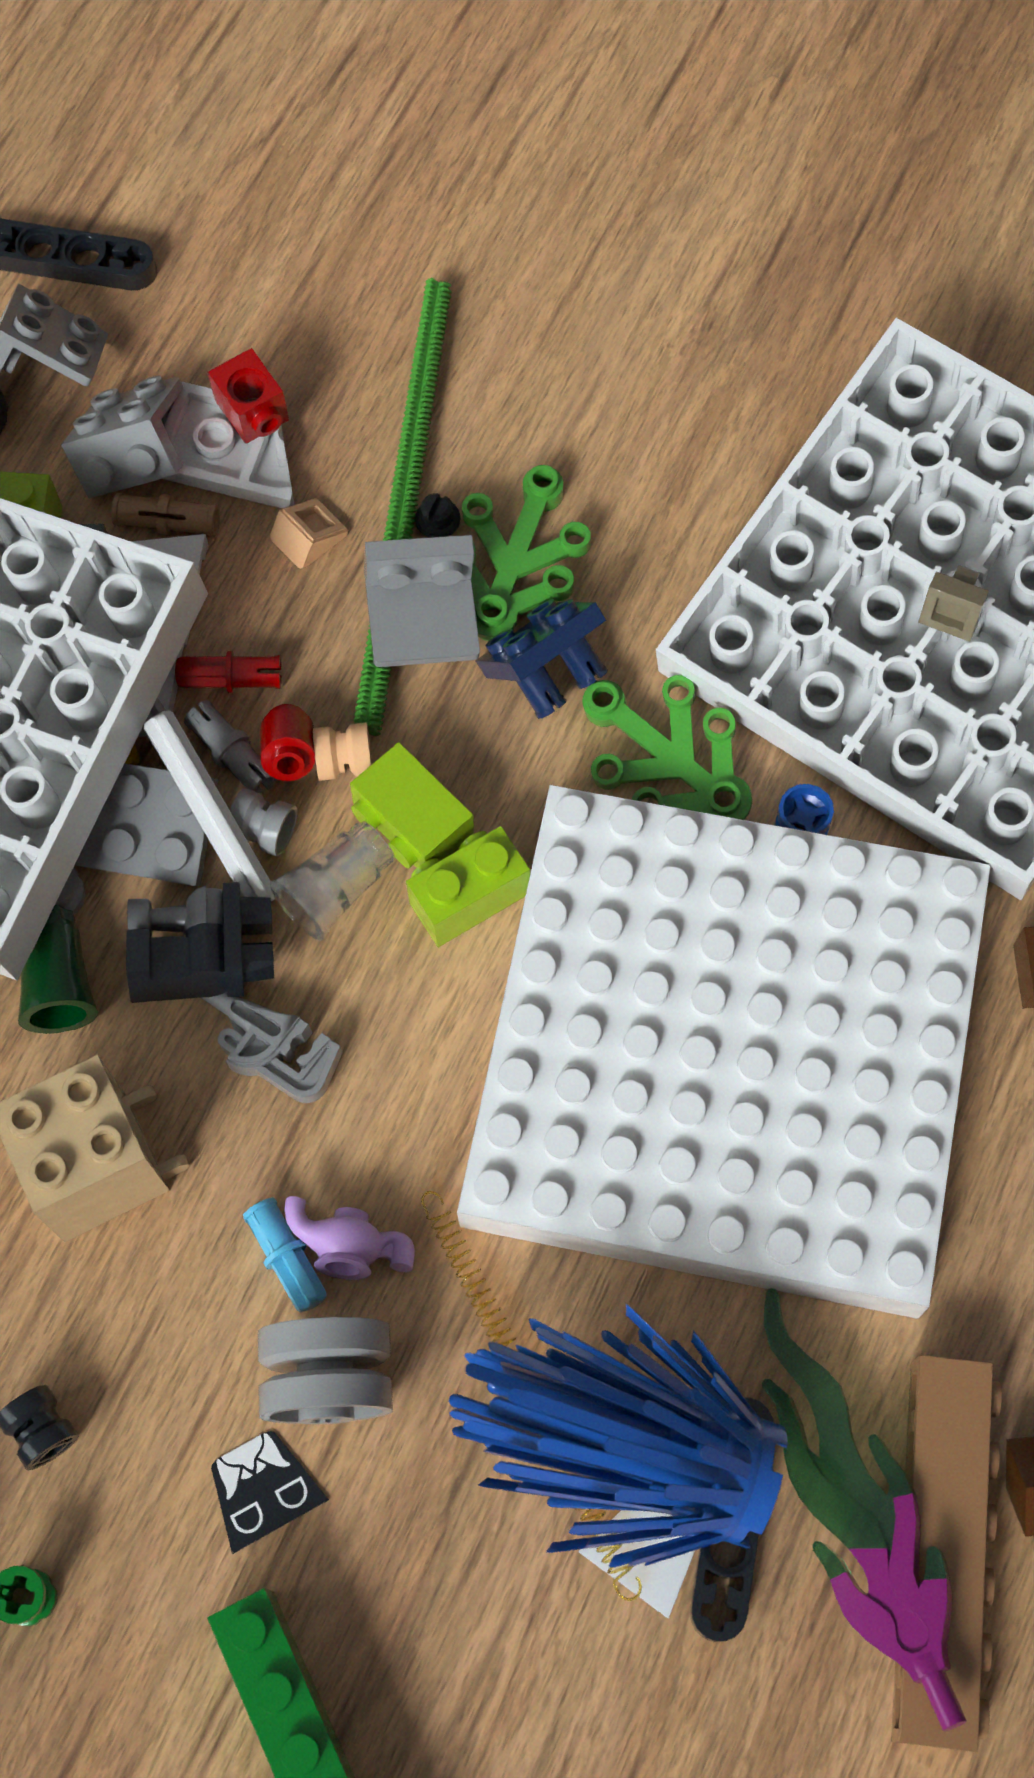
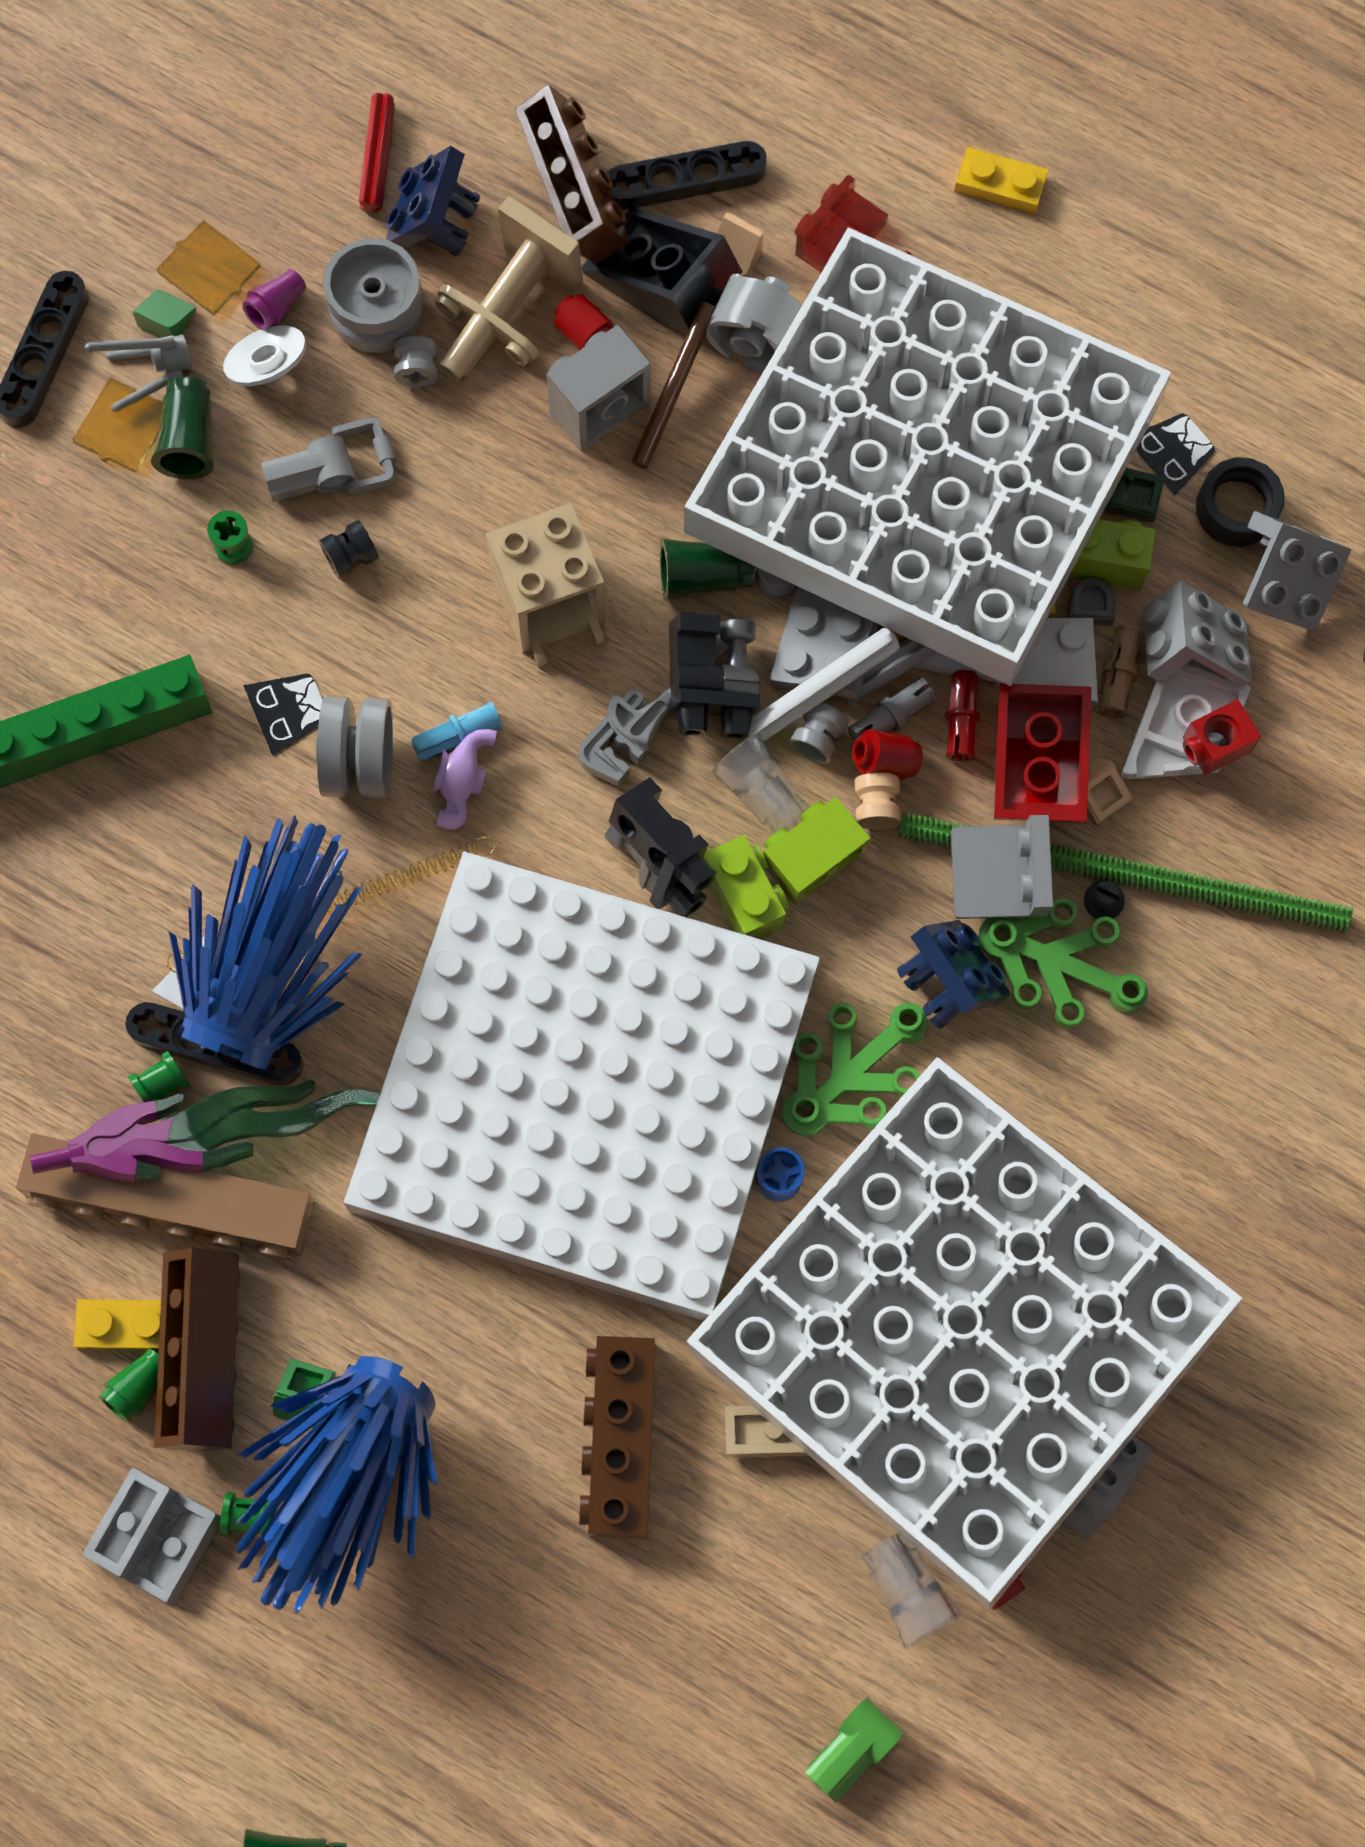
camera: 90 degrees right, 5 degrees up
(278, 575) = (1042, 752): none -> red slope
(435, 973) = (662, 847): none -> black hips
(794, 1583) = (159, 1079): none -> green bush
(954, 603) = (941, 1305): dark tan tile -> none

